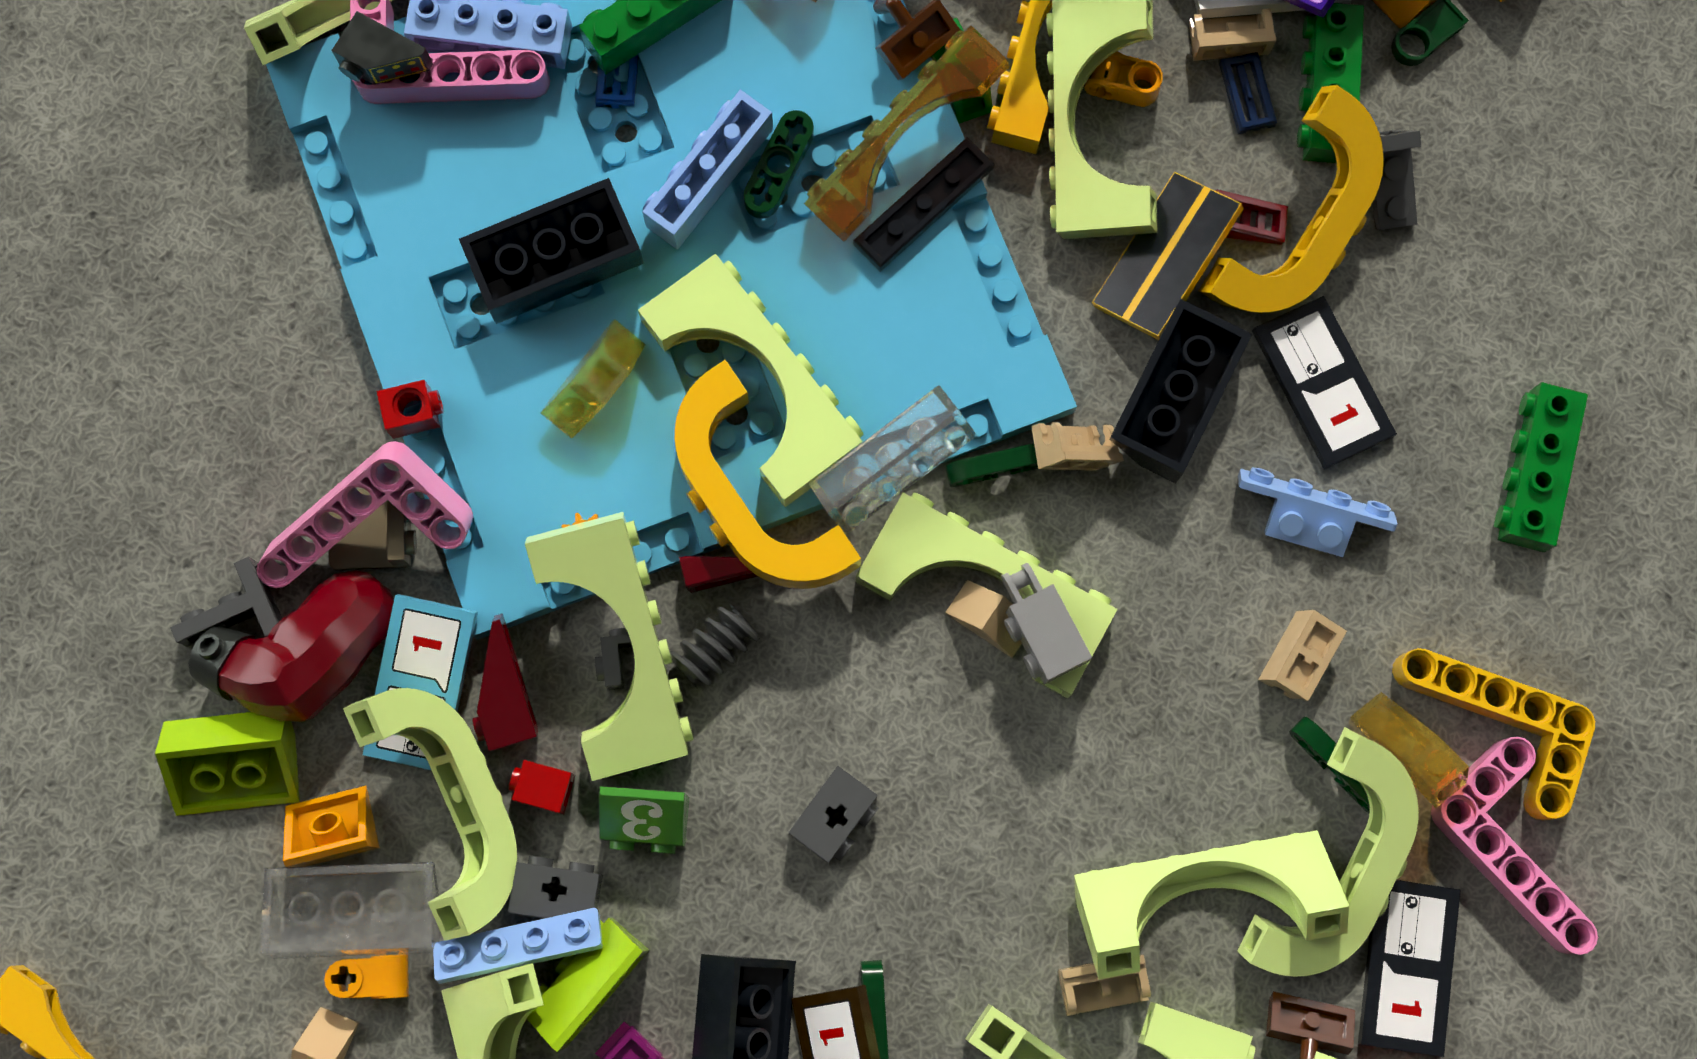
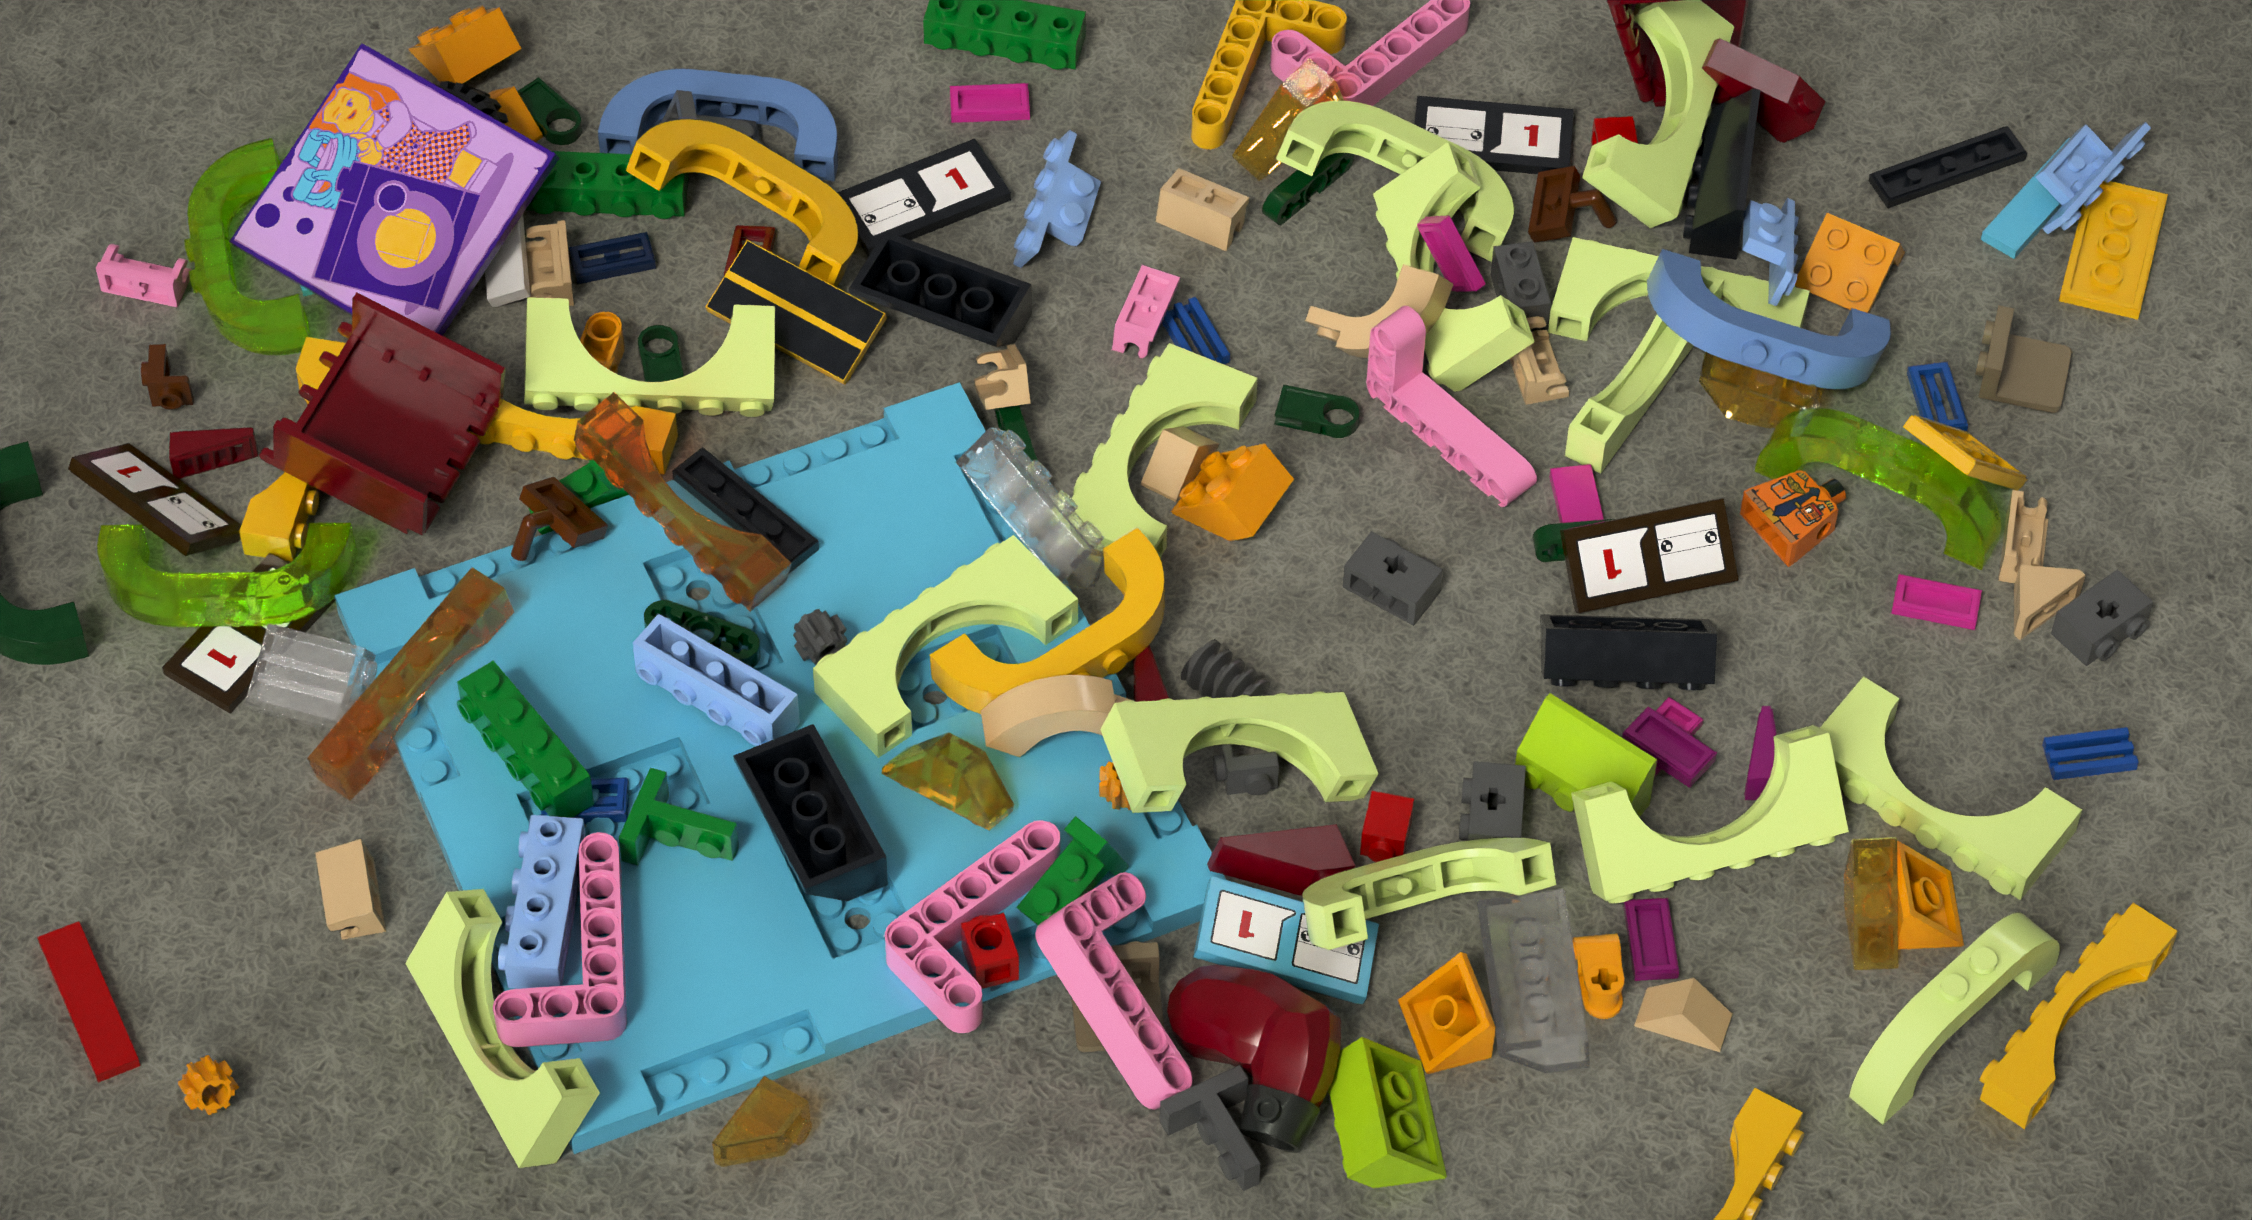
camera: 90 degrees left, 25 degrees down
(271, 221) = (763, 1126): none -> clear yellow slope
(377, 52) = (586, 977): pearl dark grey slope -> none
(409, 1033) = (1651, 939): none -> magenta tile
(451, 384) = (951, 905): none -> bright pink beam
(481, 487) = (1072, 873): none -> green bracket
(517, 945) = (1554, 818): light blue bracket -> none
(562, 133) = (673, 825): none -> green bracket
(643, 817) = (1412, 730): bright green slope -> none
(655, 482) = (1045, 708): none -> tan arch
(761, 265) = (819, 635): none -> dark grey gear
(927, 1011) = (1575, 494): none -> dark pink tile
(942, 665) = (1234, 492): none -> light orange slope
(1022, 882) = (1438, 418): none -> bright pink beam
(1043, 628) = (1195, 389): light grey brick -> none
(1050, 745) = (1306, 409): none -> dark green piece
(1107, 138) = (660, 366): none -> dark green piece
(1147, 856) = (1415, 288): none -> tan arch
(1168, 590) = (1144, 309): none -> bright pink hinge
(1176, 627) = (1182, 312): none -> blue tile
(1193, 975) = (1520, 279): none -> dark grey brick
(1228, 903) = (1450, 253): none -> dark pink tile
(1430, 110) = (731, 96): none -> medium blue arch
(1448, 452) = (989, 102): none -> dark pink tile

